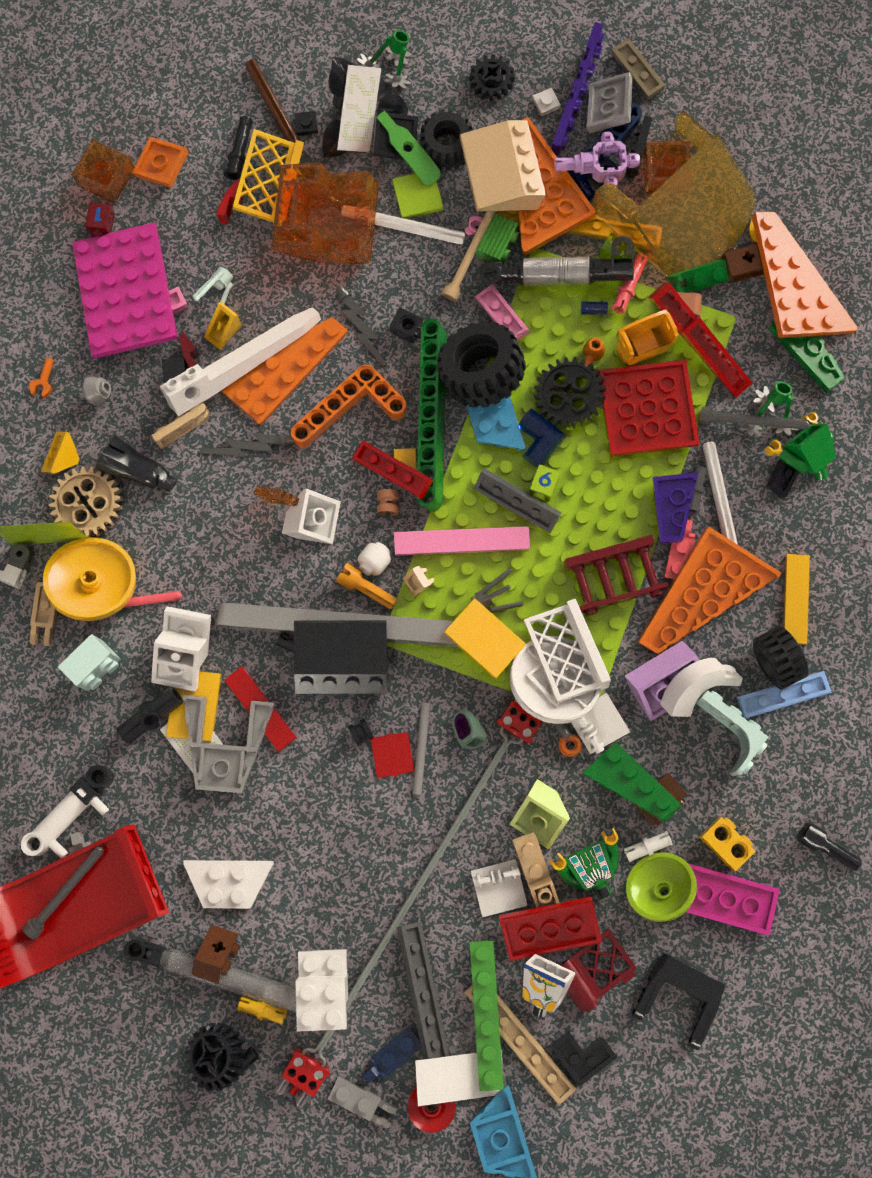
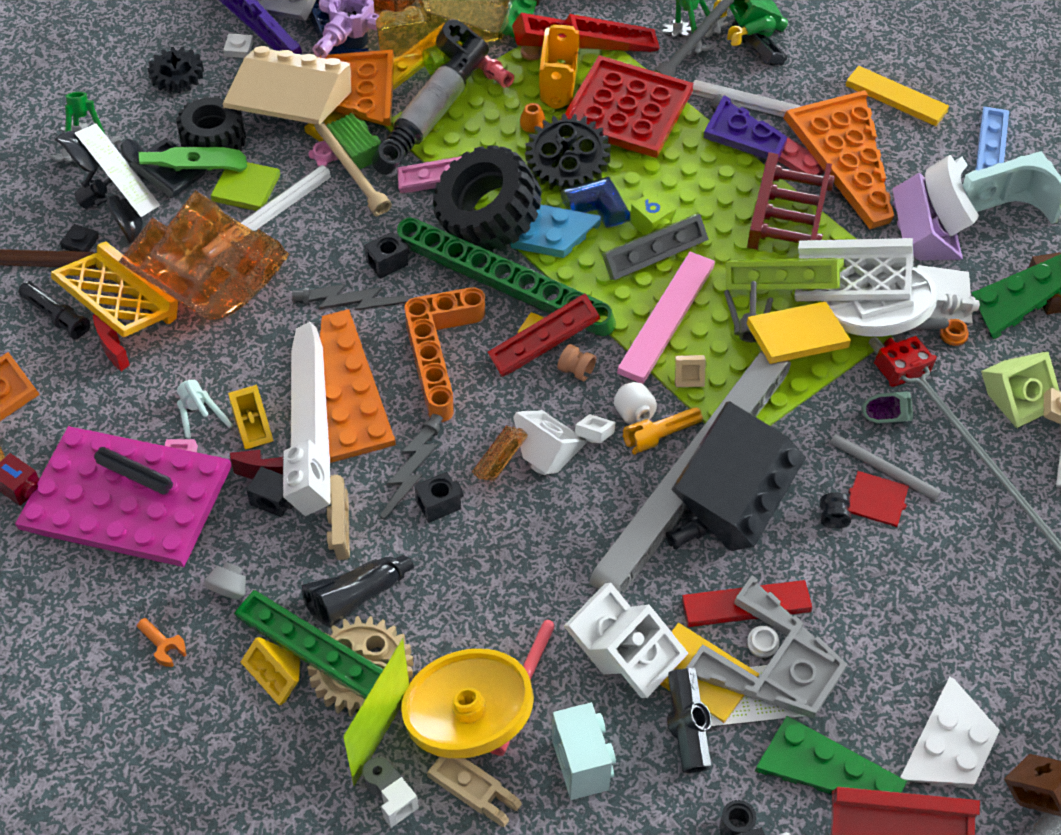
camera: 65 degrees left, 25 degrees down
(77, 465) = (309, 643): none -> green tile
(133, 285) = (133, 470): none -> black axle
(169, 809) = (816, 761): none -> green wing
(225, 468) = (434, 507): none -> black brick
(236, 732) = (763, 641): none -> white plate
(339, 544) = (595, 428): none -> white plate
(534, 602) = (784, 273): none -> lime fence
(594, 308) = (493, 95): clear blue pin -> none
(780, 657) = (957, 118): black tyre -> none

